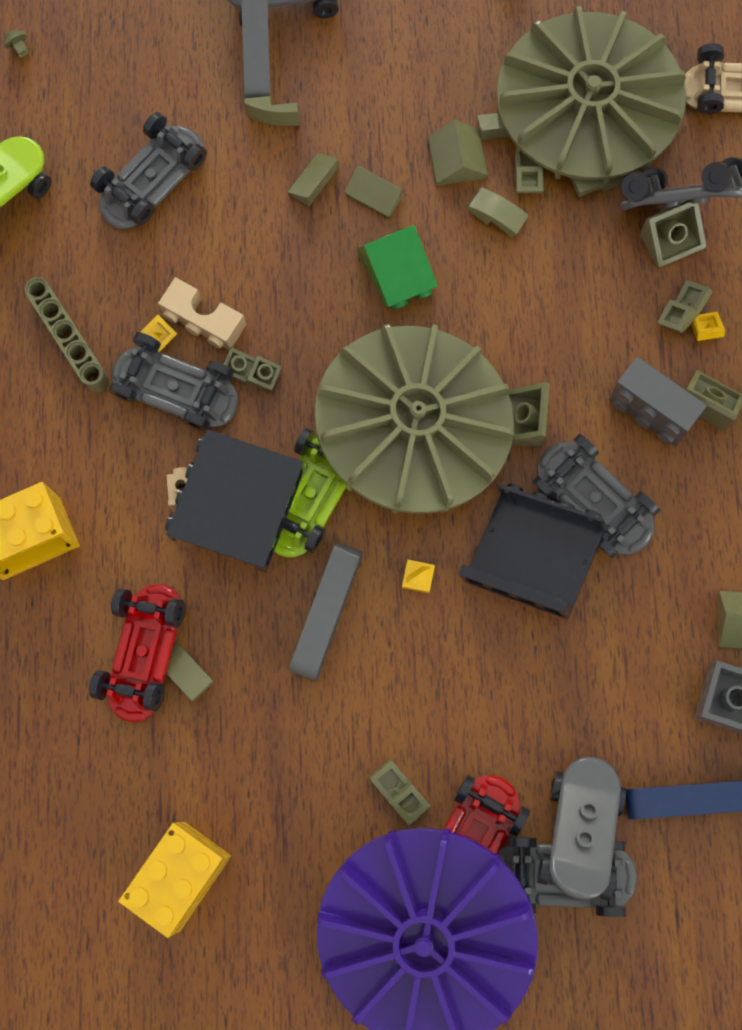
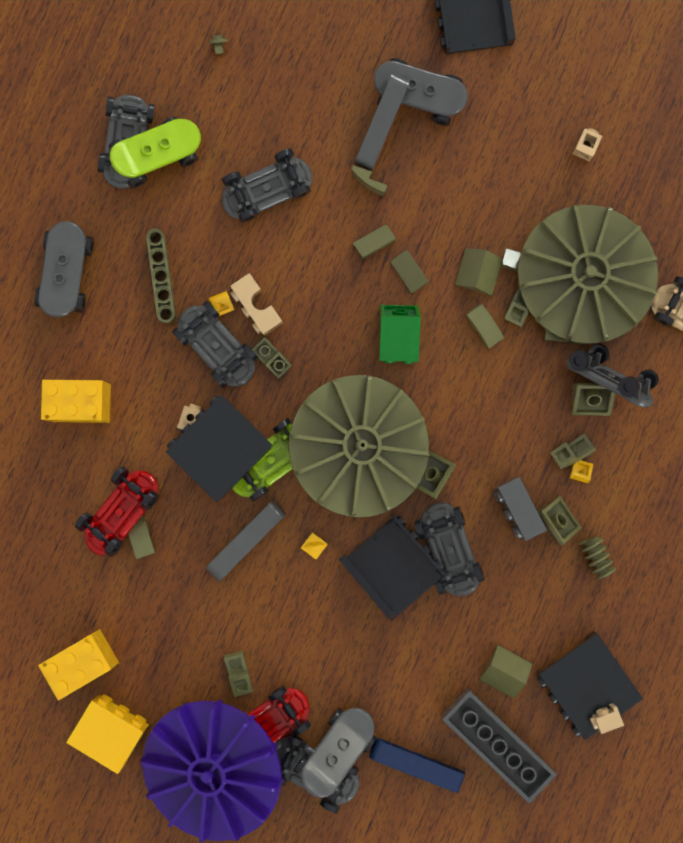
camera: 15 degrees right, 10 degrees up
(258, 957) = (108, 733): none -> yellow container

